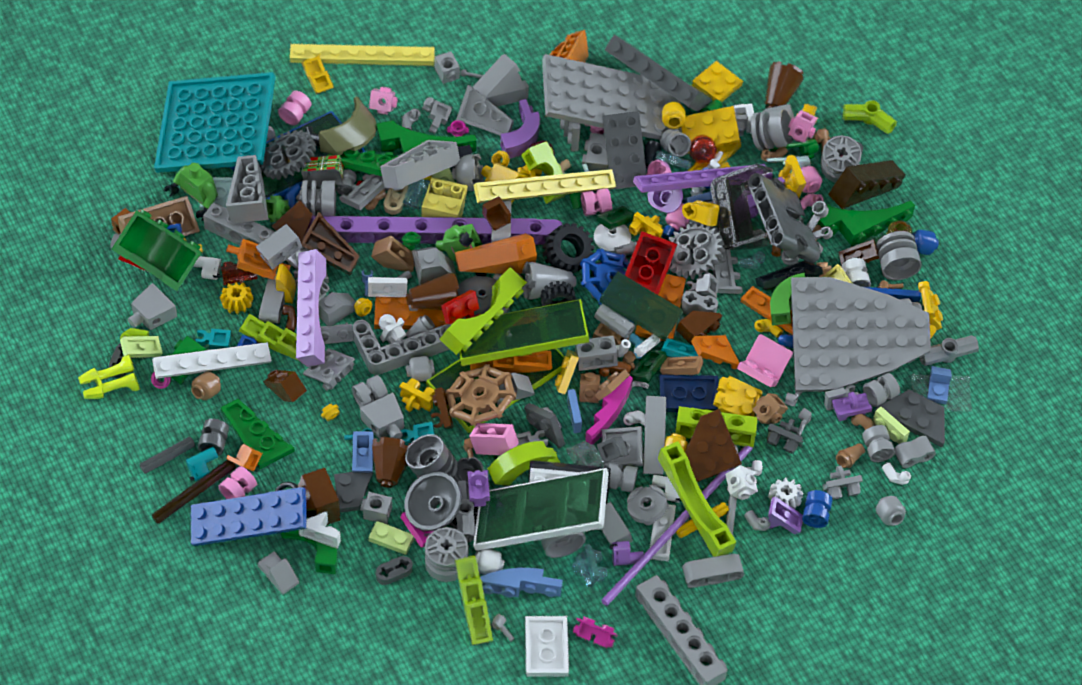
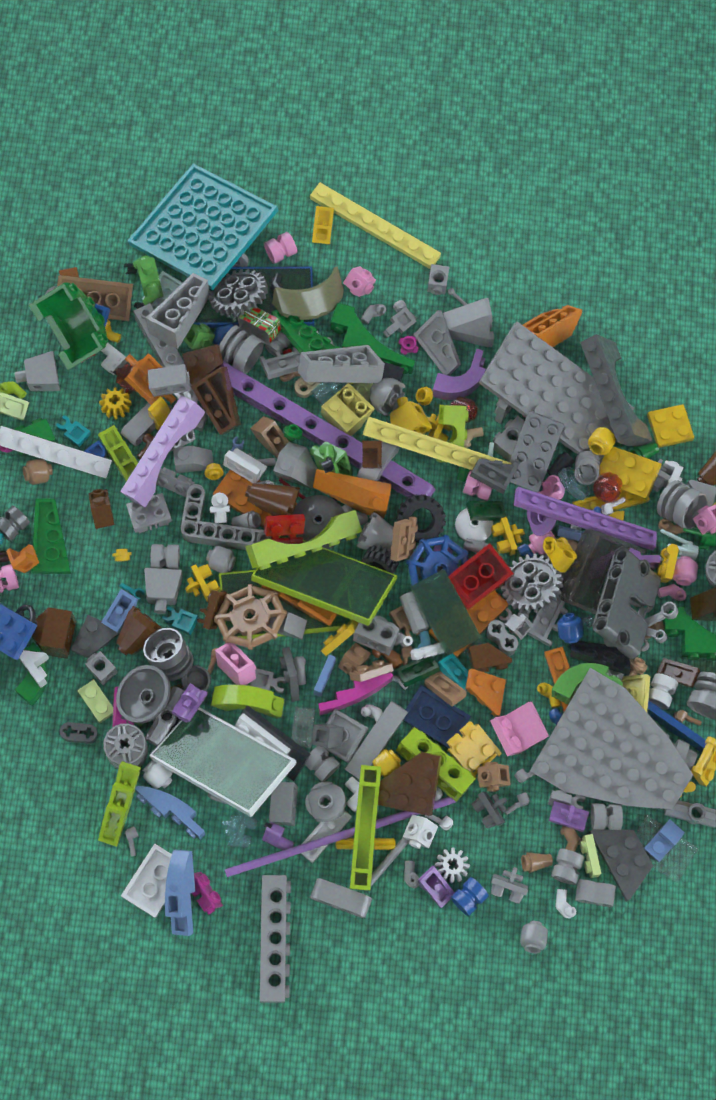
camera: 30 degrees right, 15 degrees up
(565, 258) = (403, 538): none -> medium nougat plate
(577, 637) = (177, 892): none -> medium blue slope
(605, 181) = (494, 473): none -> dark grey wing
(749, 267) = (570, 628): none -> blue head

